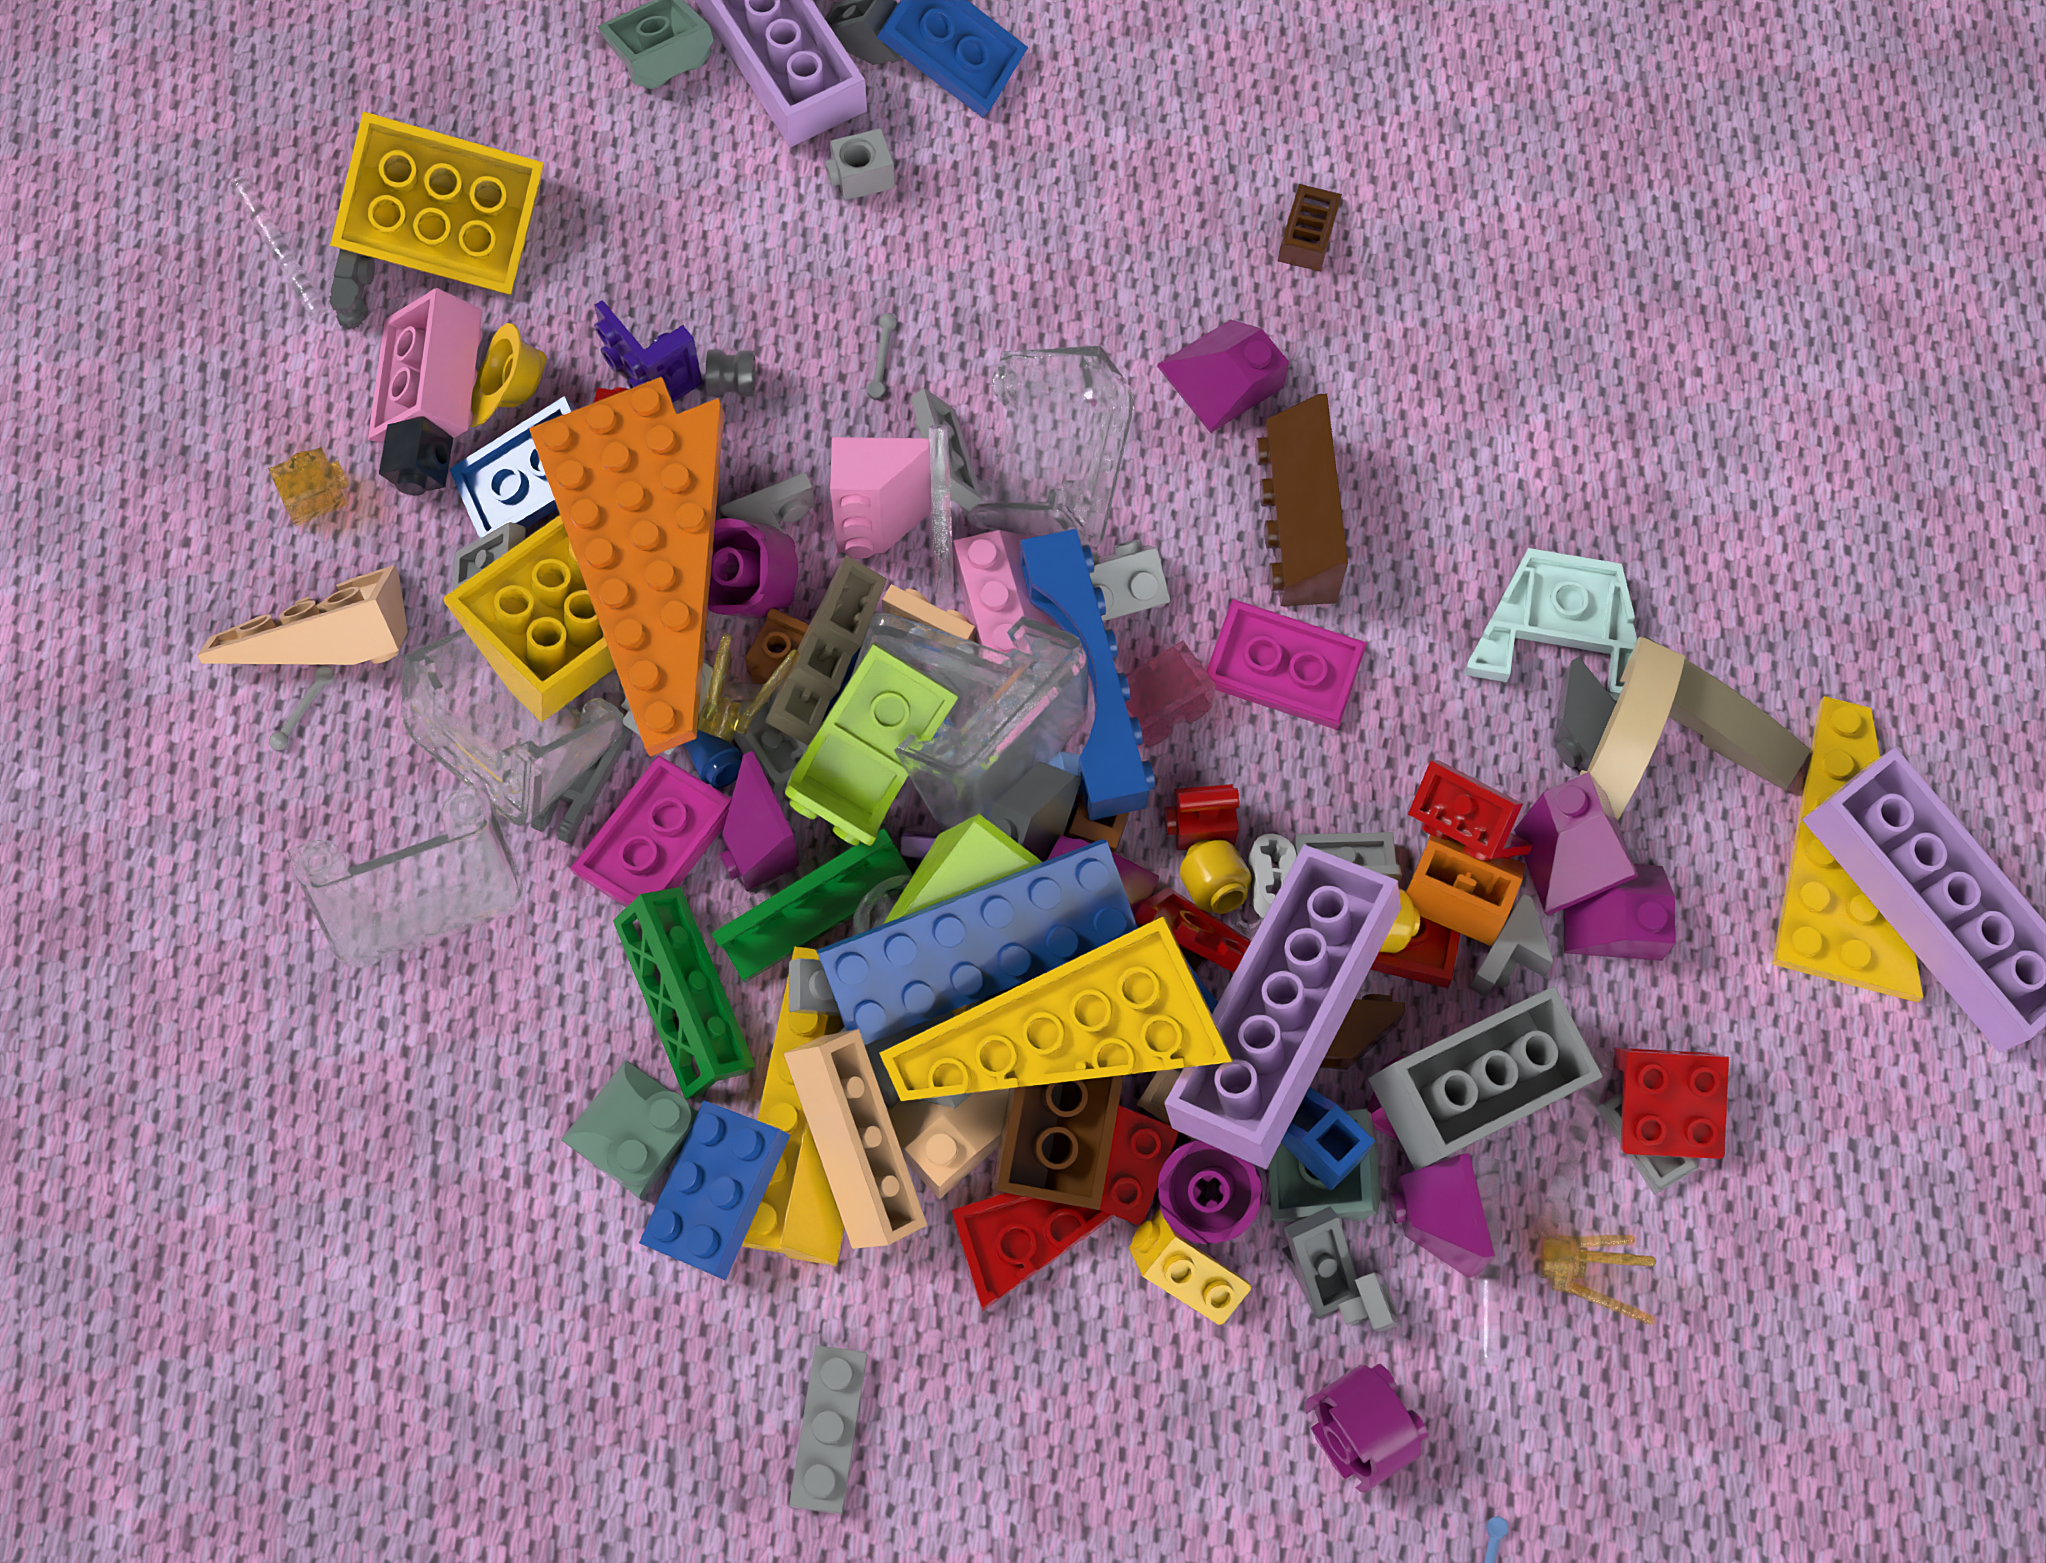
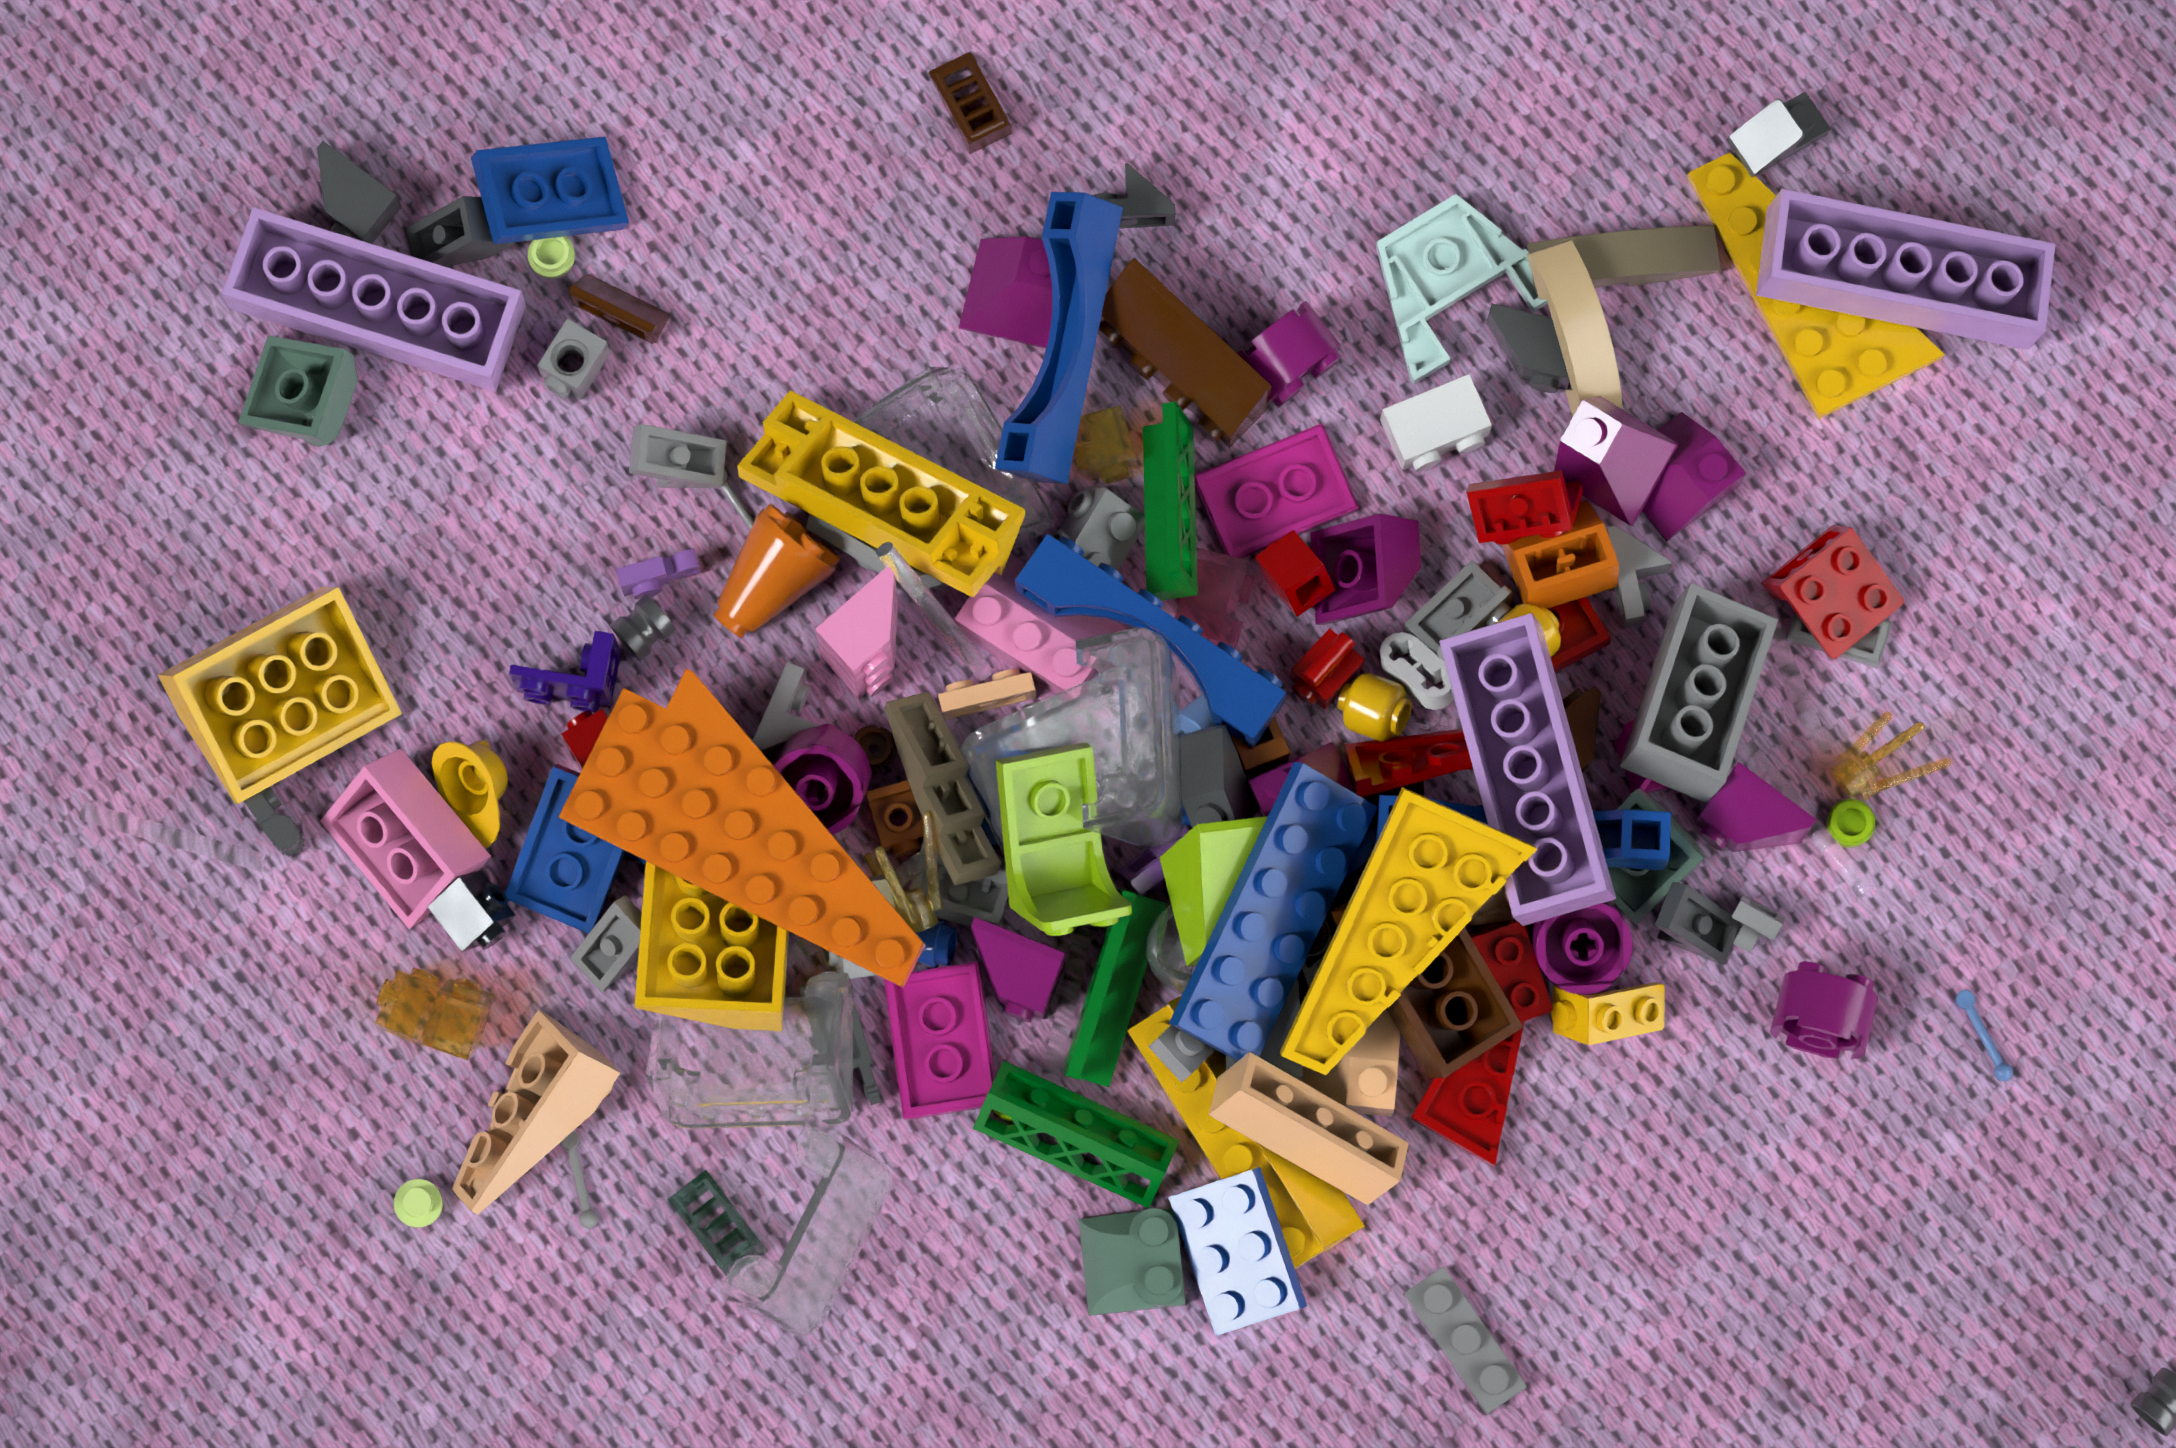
camera: 40 degrees left, 10 degrees up
(174, 624) = (418, 1203): none -> yellowish green plate
(330, 518) = (458, 1018): none -> clear yellow brick
(363, 850) = (694, 1190): none -> slope
(775, 344) = (649, 575): none -> medium lavender plate
(810, 579) = (883, 740): none -> reddish brown plate
(857, 403) = (772, 571): none -> orange cone
(867, 277) = (677, 457): none -> light grey slope
(915, 92) = (551, 256): none -> yellowish green plate
(927, 159) = (618, 308): none -> reddish brown slope
(991, 416) = (883, 493): none -> yellow slope
(1186, 522) = (1105, 446): none -> clear yellow brick
(1194, 598) = (1170, 506): none -> green fence
(1244, 726) = (1295, 573): none -> red brick
(1295, 356) = (1080, 249): none -> blue arch
(1305, 764) = (1367, 563): none -> magenta slope
(1365, 385) = (1143, 203): none -> dark grey slope
(1387, 567) = (1291, 351): none -> magenta brick
(1456, 712) = (1436, 424): none -> white brick
(1524, 1297) = (1851, 823): none -> lime tile
(1924, 723) = (1778, 133): none -> slope

